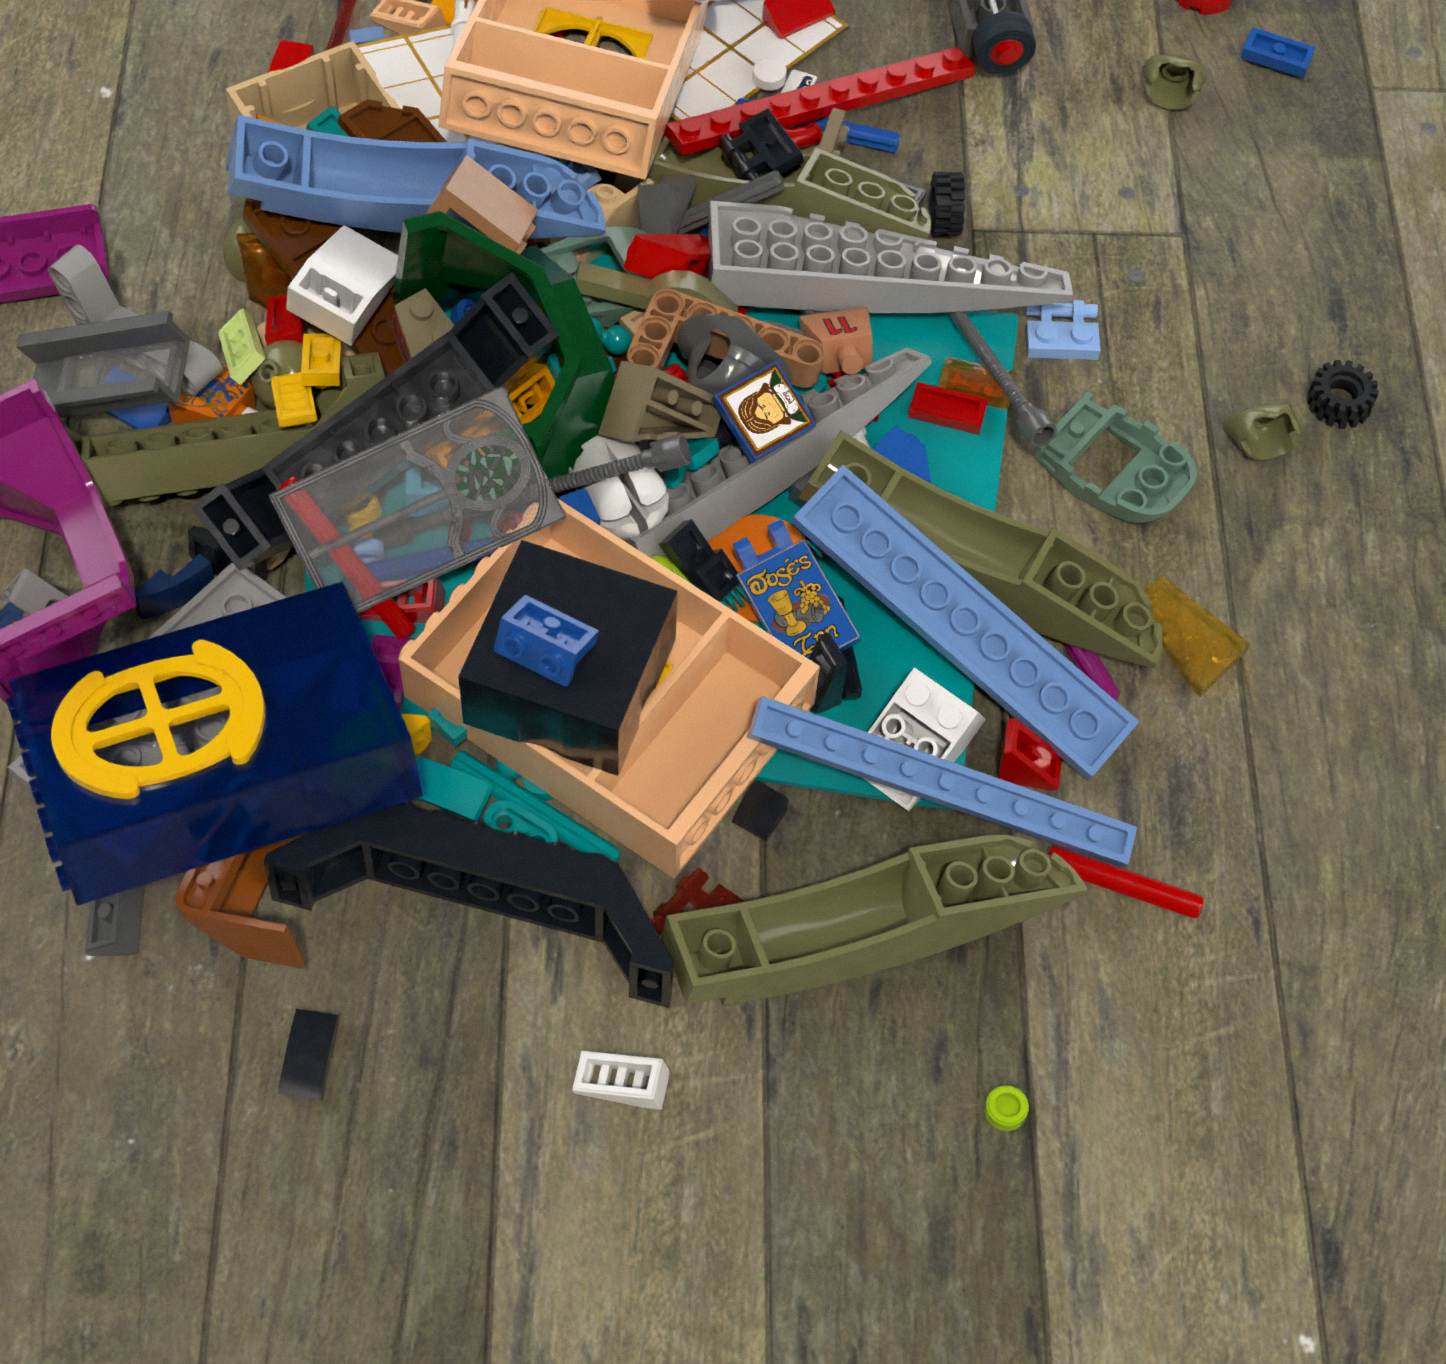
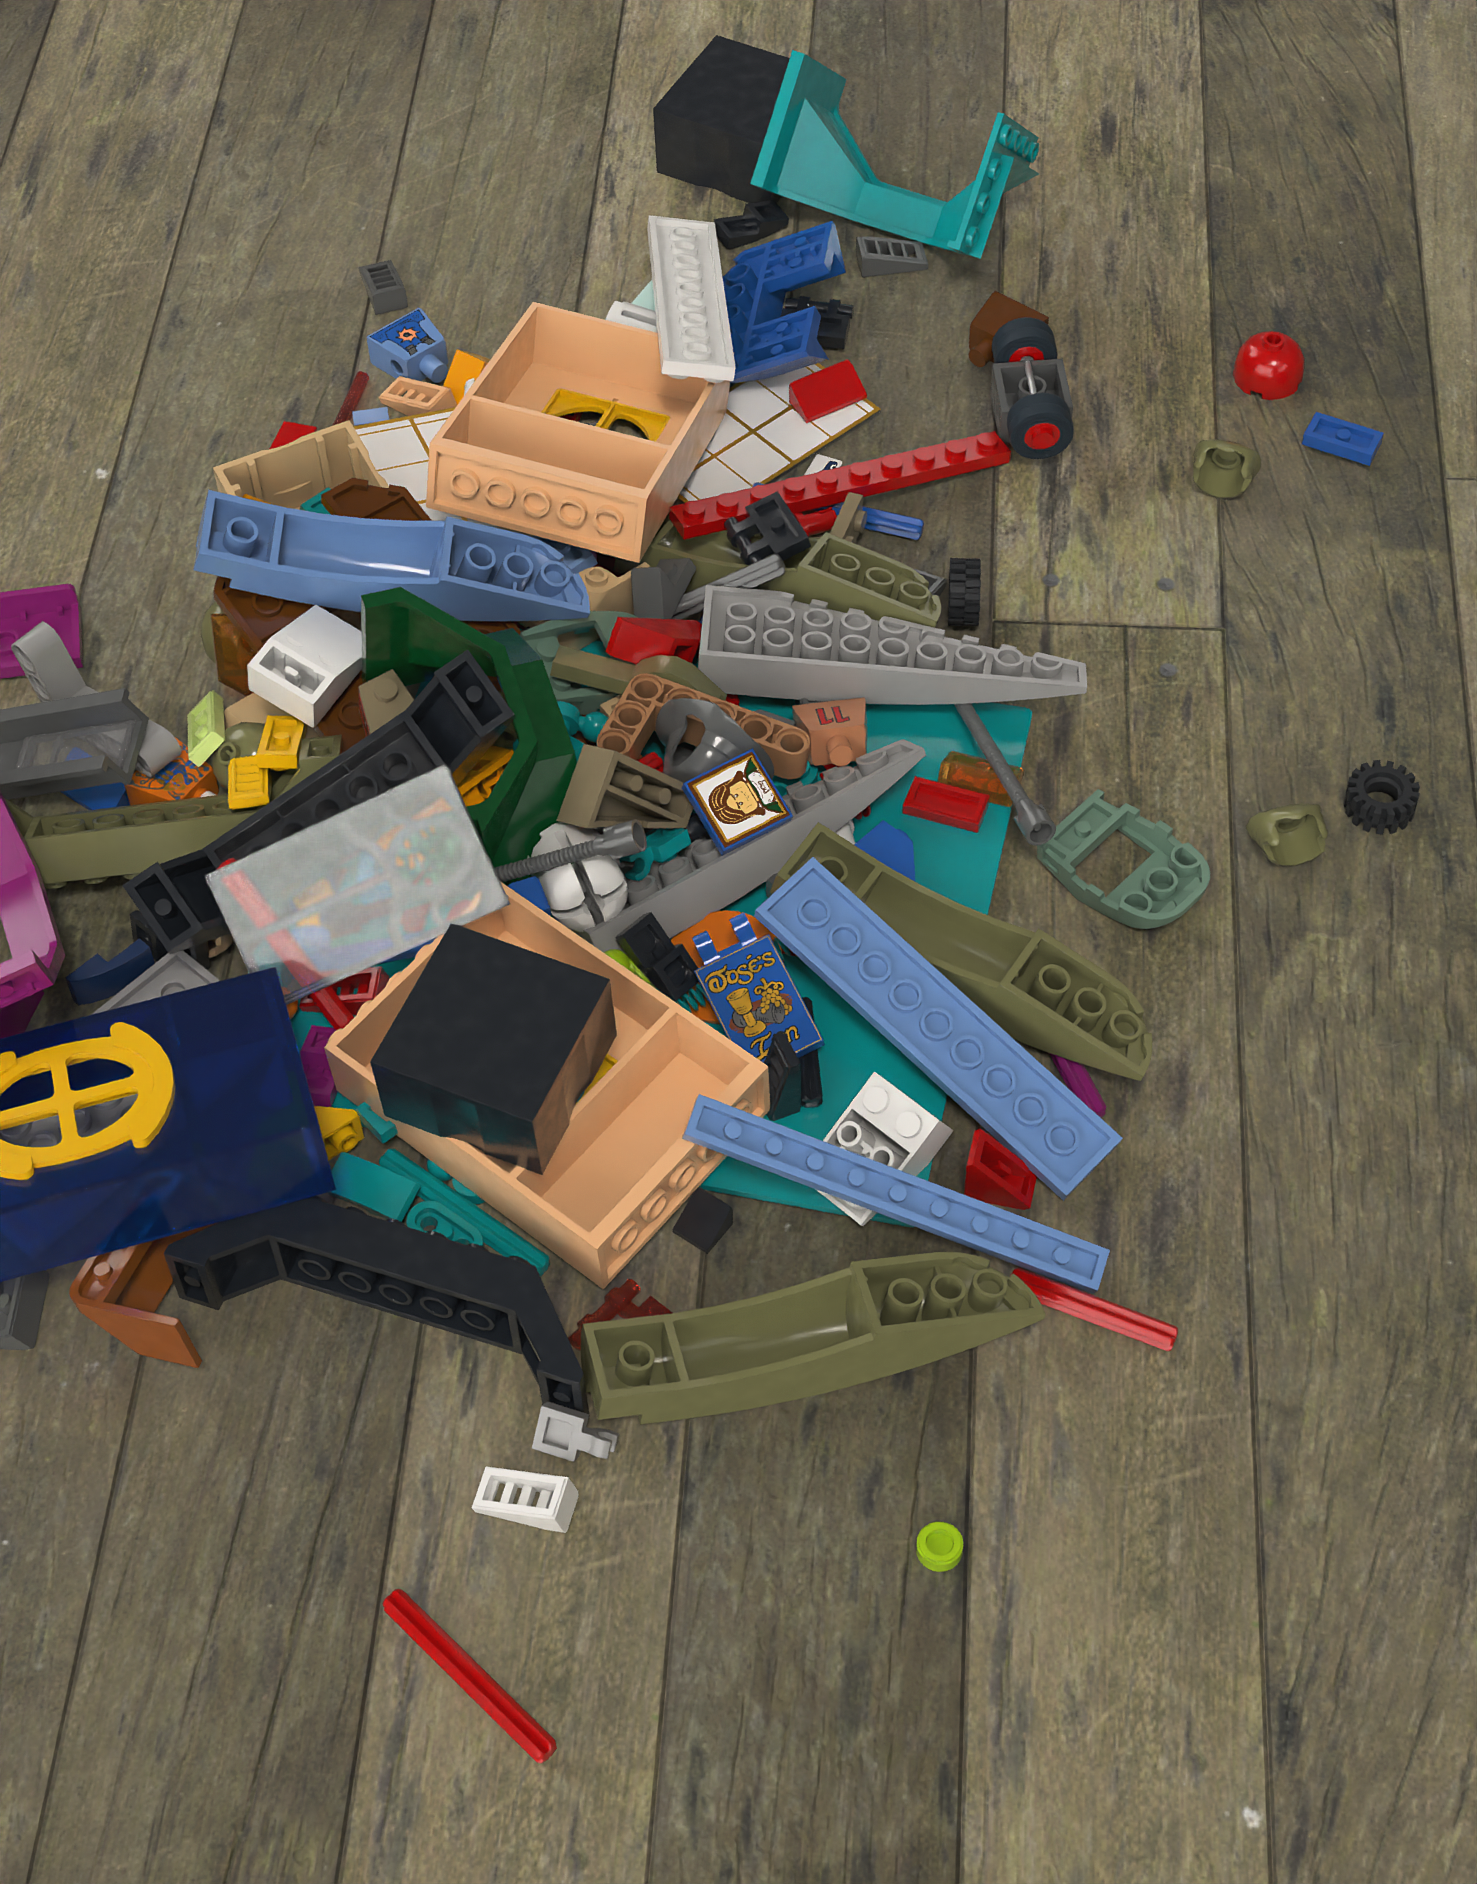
camera: 10 degrees right, 5 degrees down
(282, 323) = (248, 706): red tile -> none
(308, 1054) = (196, 1458): black slope -> none
(487, 205) = (460, 584): panel -> none
(544, 639) = (461, 1025): blue bracket -> none
(587, 1248) = (470, 1676): none -> red axle
(653, 1016) = (565, 1434): none -> light grey plate
(769, 74) = (790, 458): white tile -> none
(1063, 339) = (1076, 734): light blue plate -> none
(1193, 636) = (1191, 1049): clear yellow wing -> none

